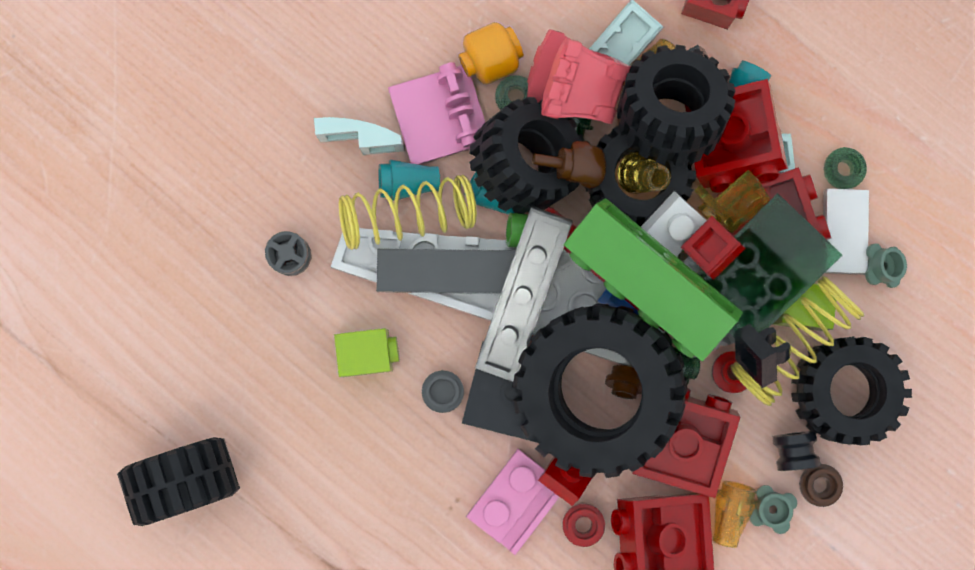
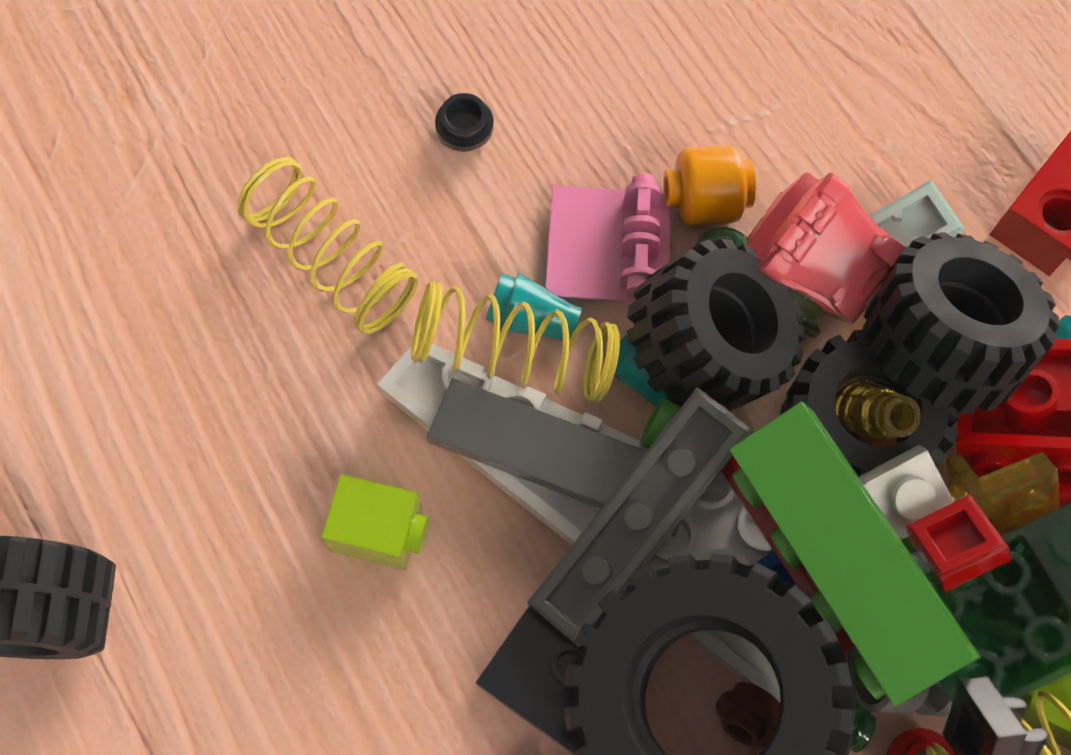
camera: 20 degrees right, 15 degrees down
(281, 249) = (321, 334): dark grey wheel -> none
(312, 63) = (464, 122): none -> black plate
(316, 199) = (377, 291): none -> light yellow piece
(371, 137) = (505, 236): light aqua slope -> none
(442, 391) = (465, 625): dark grey plate -> none
(577, 164) = (788, 354): reddish brown piece -> none

